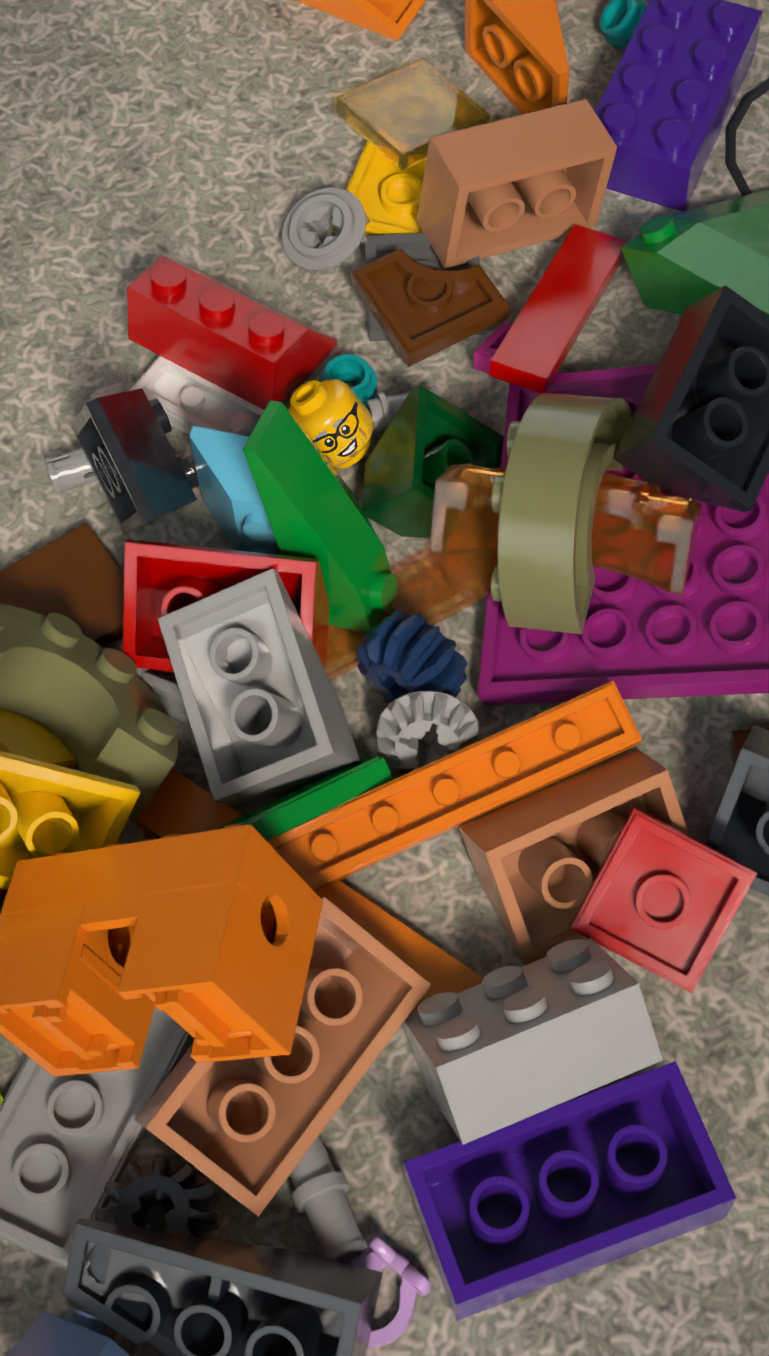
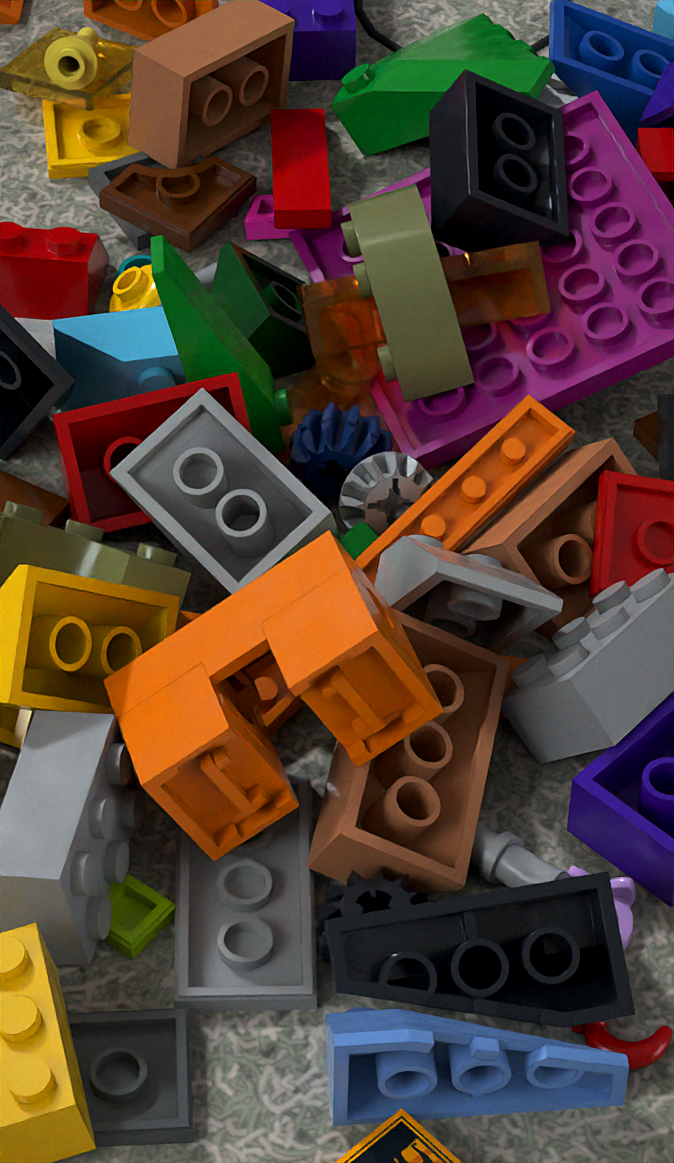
camera: 30 degrees left, 15 degrees down
(317, 213) = (32, 165): light grey gear -> none
(400, 111) = (73, 59): none -> light yellow cone
(415, 893) = (463, 593): none -> light grey slope

